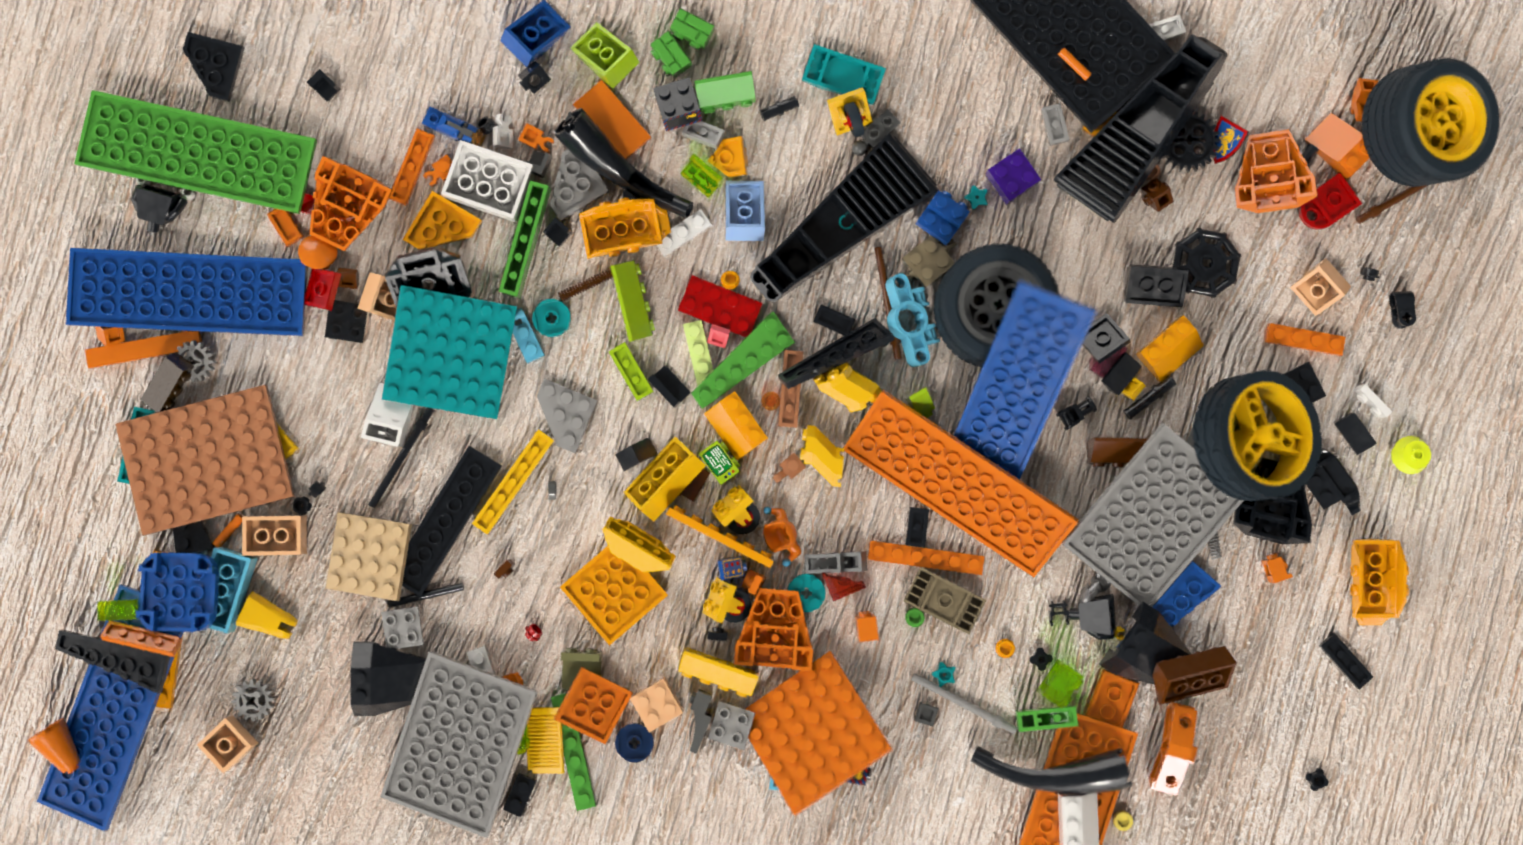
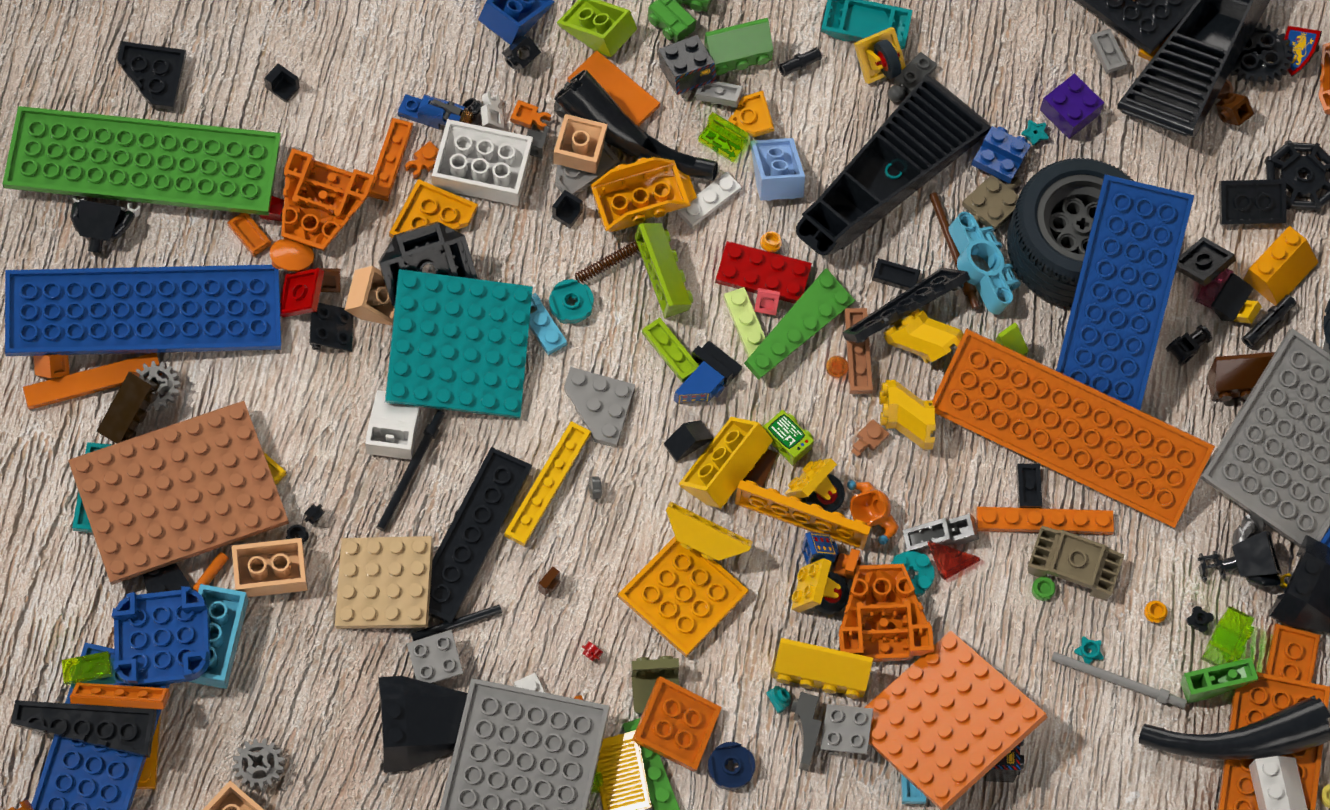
camera: 15 degrees left, 20 degrees down
(265, 617) = (265, 666): yellow piece -> none
(525, 239) = (531, 219): bright green brick -> none
(572, 175) = (580, 144): none -> light nougat slope
(652, 407) = (700, 385): none -> blue slope
(657, 704) = (753, 716): light nougat brick -> none
(682, 688) = (779, 698): none -> teal plate
(717, 634) = (814, 629): black plate -> none
(735, 425) = (802, 393): light orange slope -> none
(866, 626) = (989, 598): orange brick -> none
(926, 714) = (1076, 697): dark grey tile -> none

